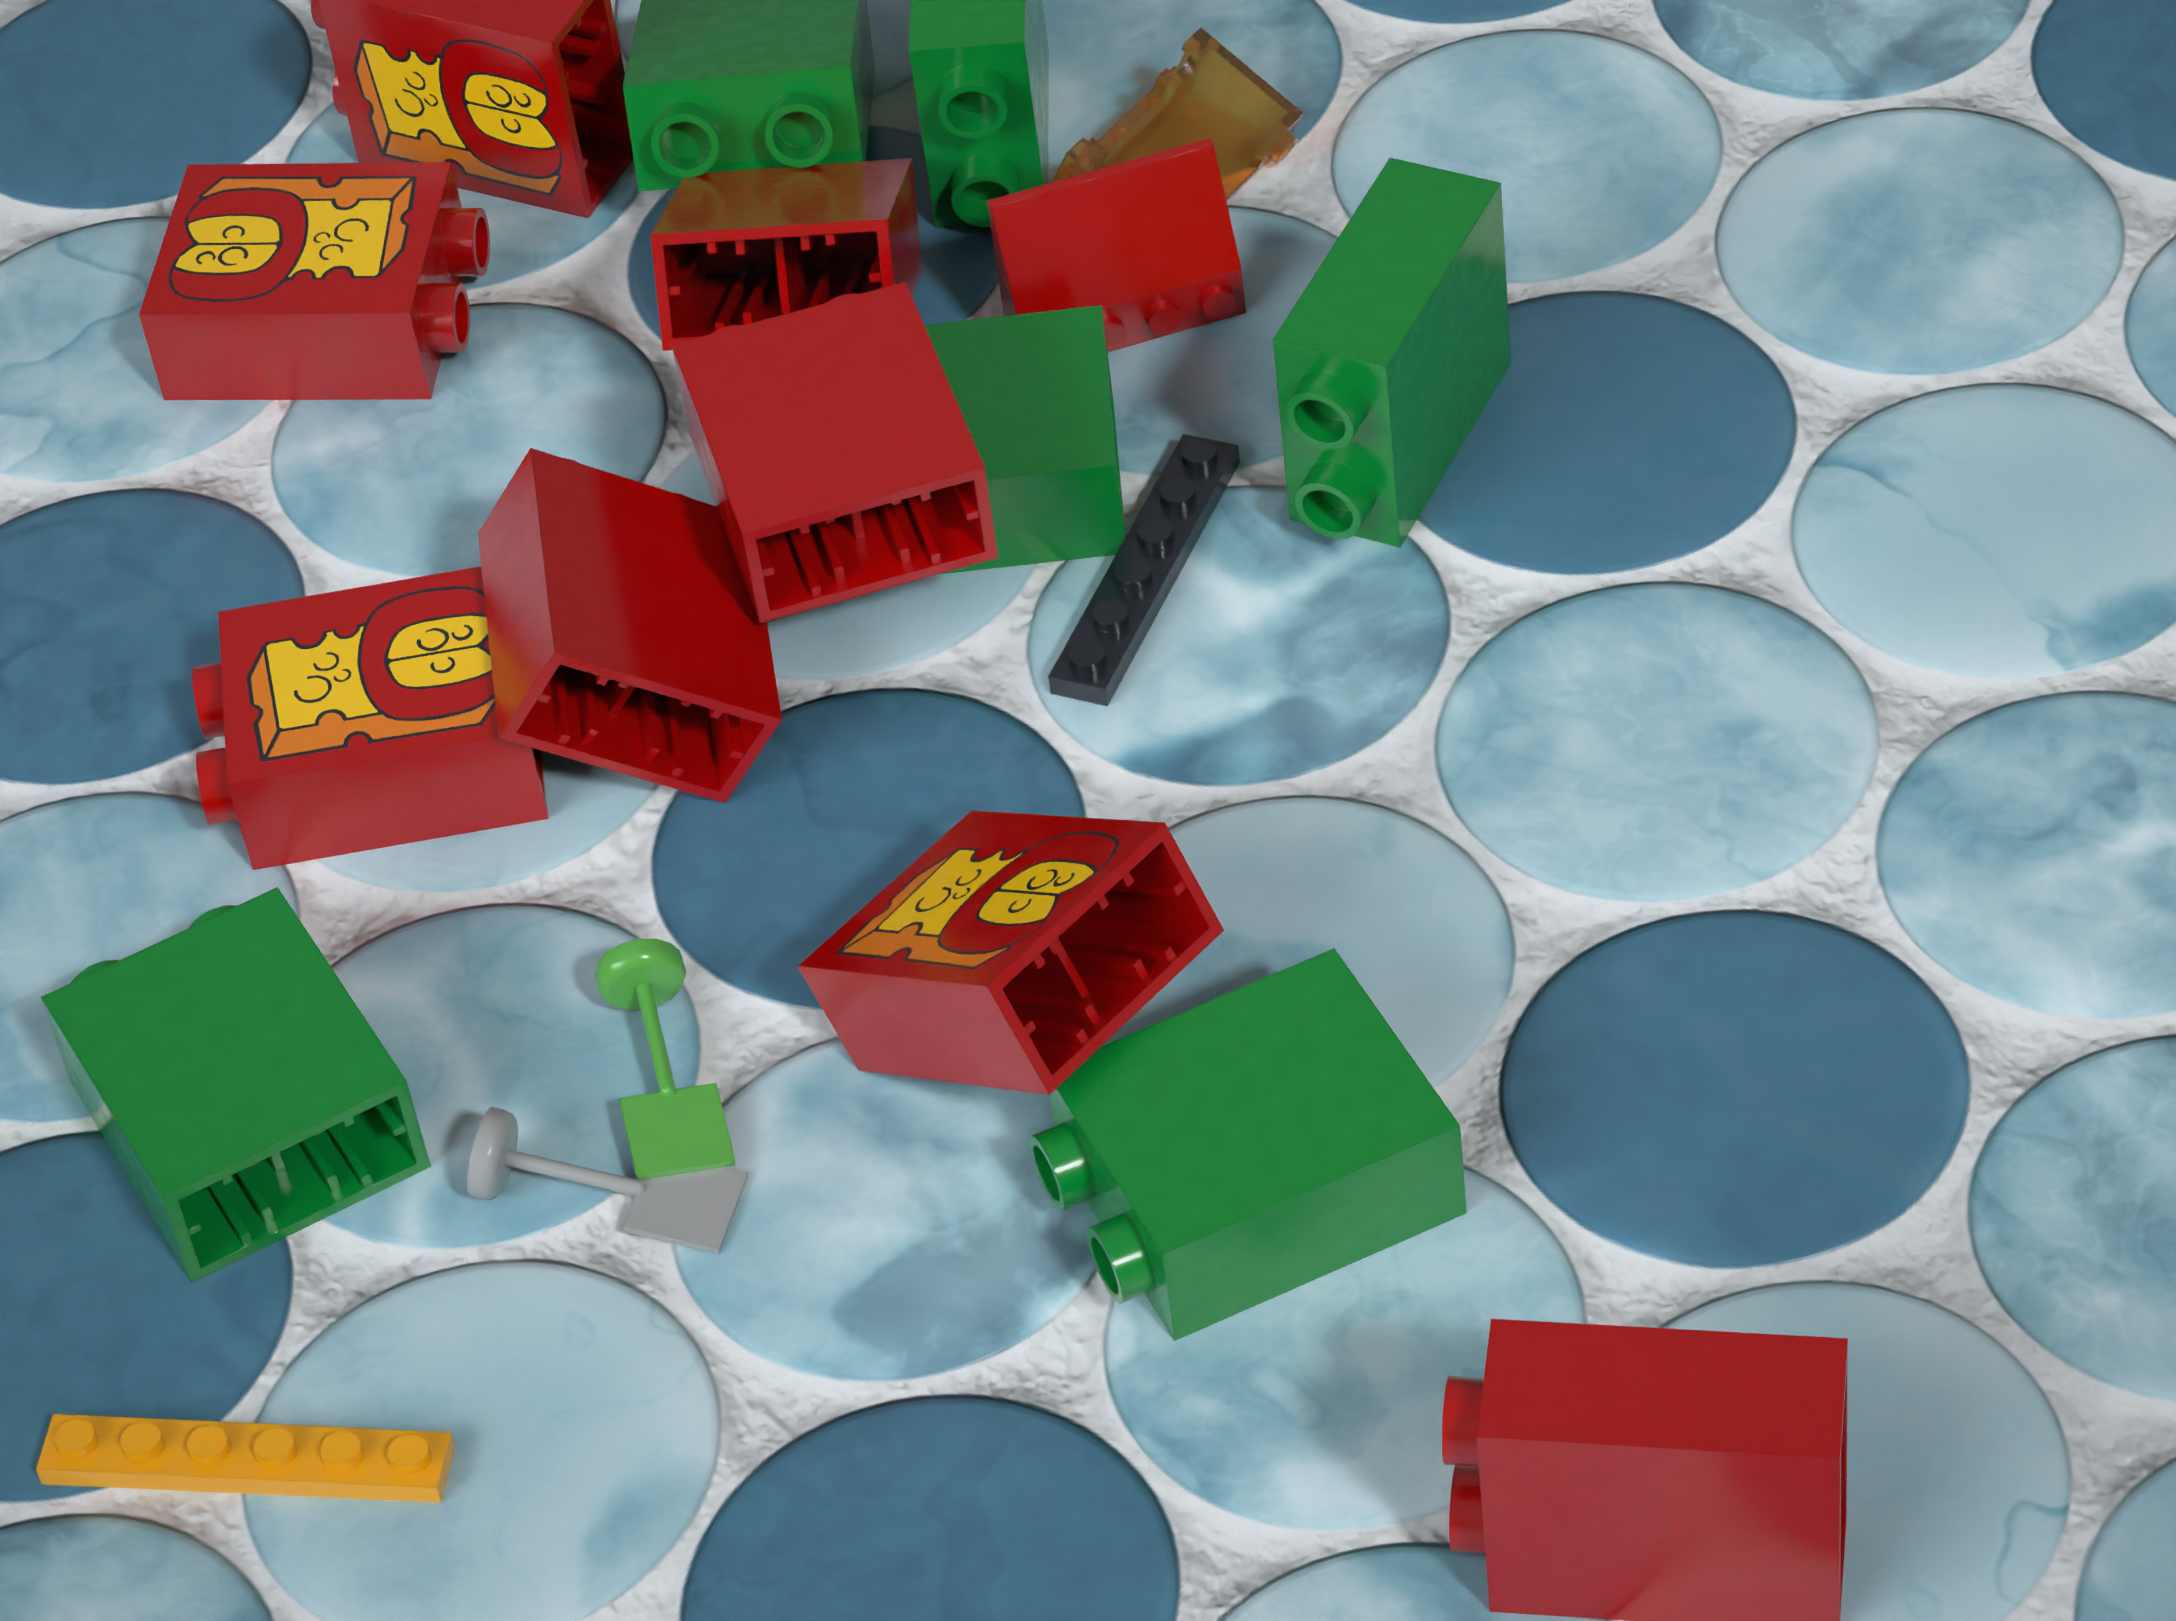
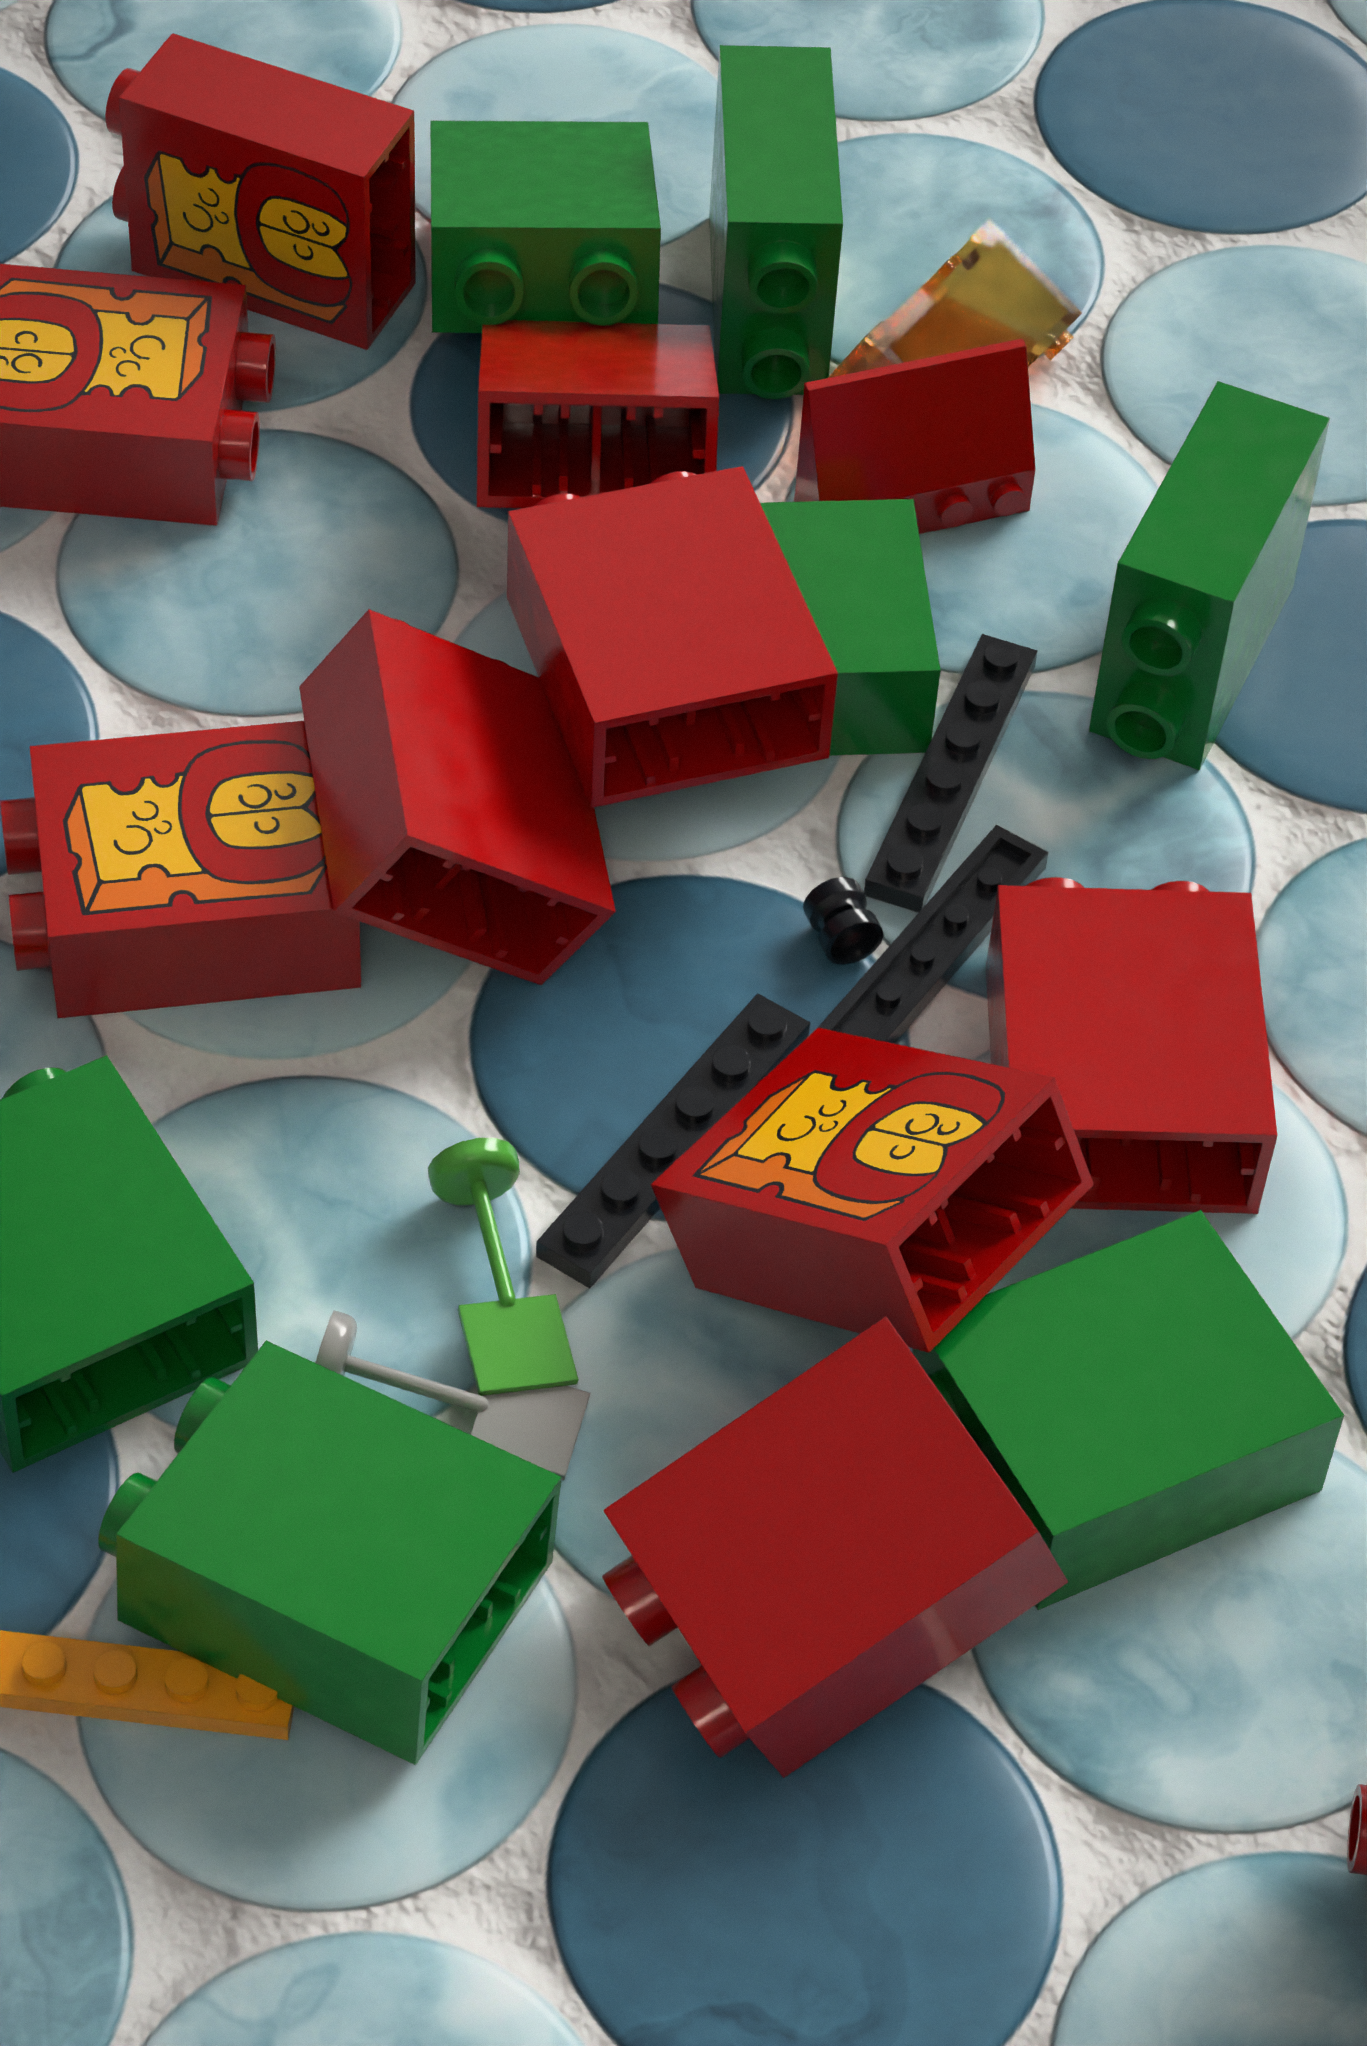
camera: 10 degrees left, 5 degrees up
(481, 1318) = (332, 1547): none -> green brick
(779, 998) = (620, 1195): none -> black plate
(944, 1287) = (826, 1553): none -> red brick
(1016, 708) = (845, 924): none -> black wheel
(1122, 721) = (936, 940): none -> black plate
(1296, 803) = (1150, 1031): none -> red brick

